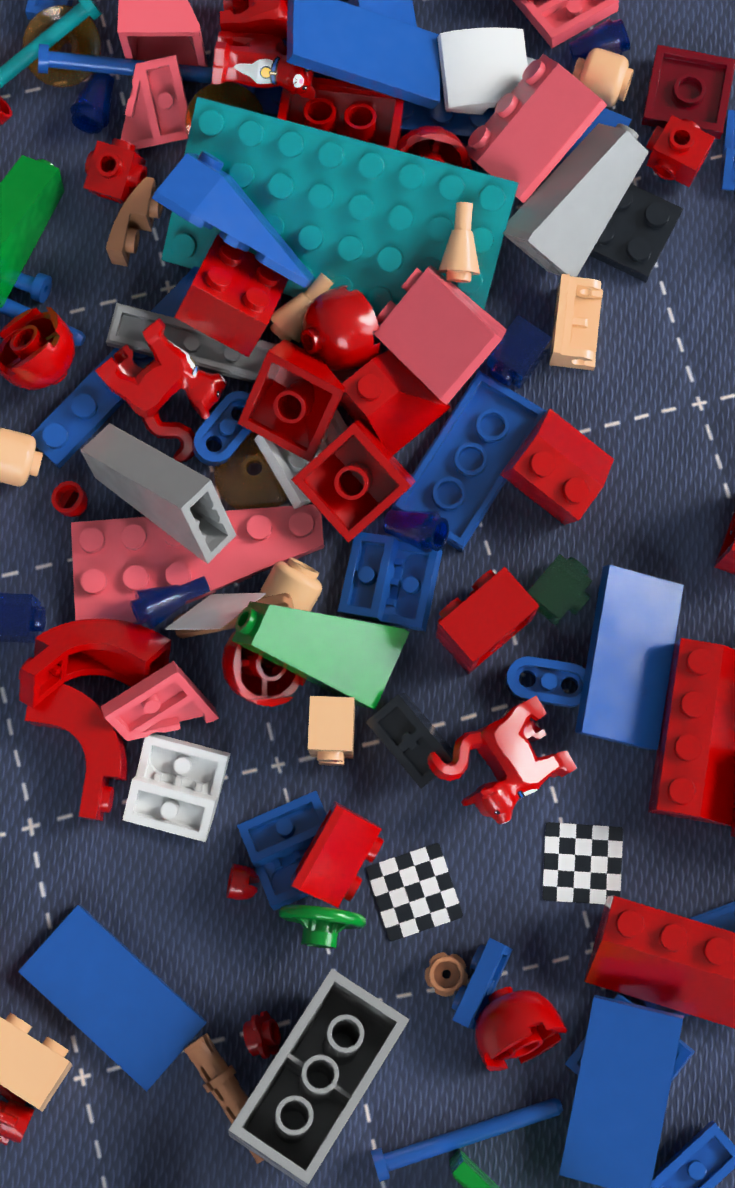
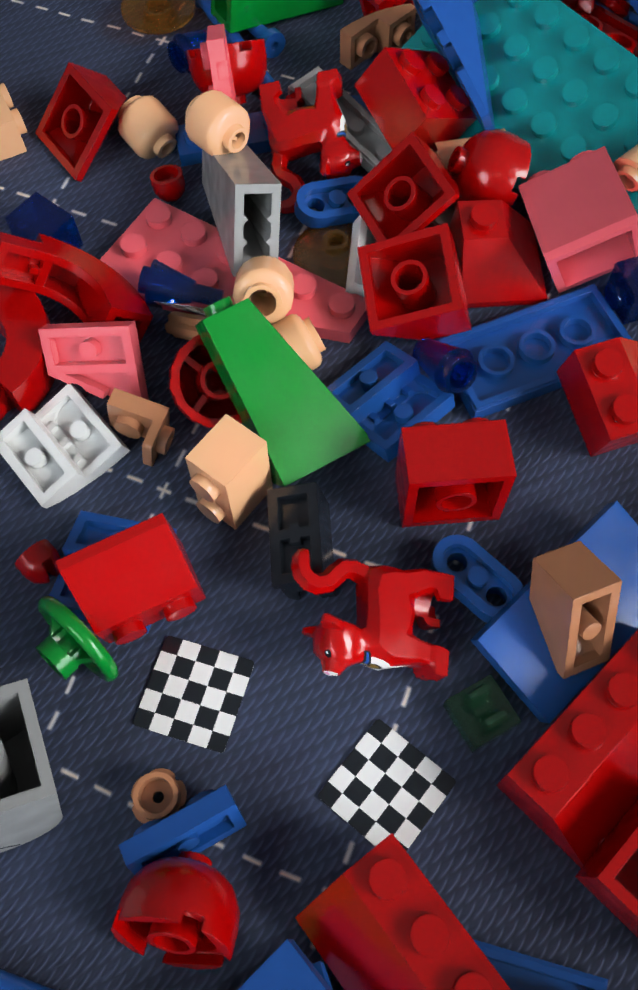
camera: 35 degrees right, 15 degrees down
(61, 391) = (216, 57): none -> coral wing
(100, 442) = (217, 123): none -> light nougat head
(221, 730) = (141, 418): none -> nougat bracket
(245, 564) = (267, 286): none -> light nougat head
(561, 589) = (548, 501): clear green brick -> none
(610, 772) = (481, 713): none -> clear green tile
(629, 667) = (575, 606): none -> nougat slope

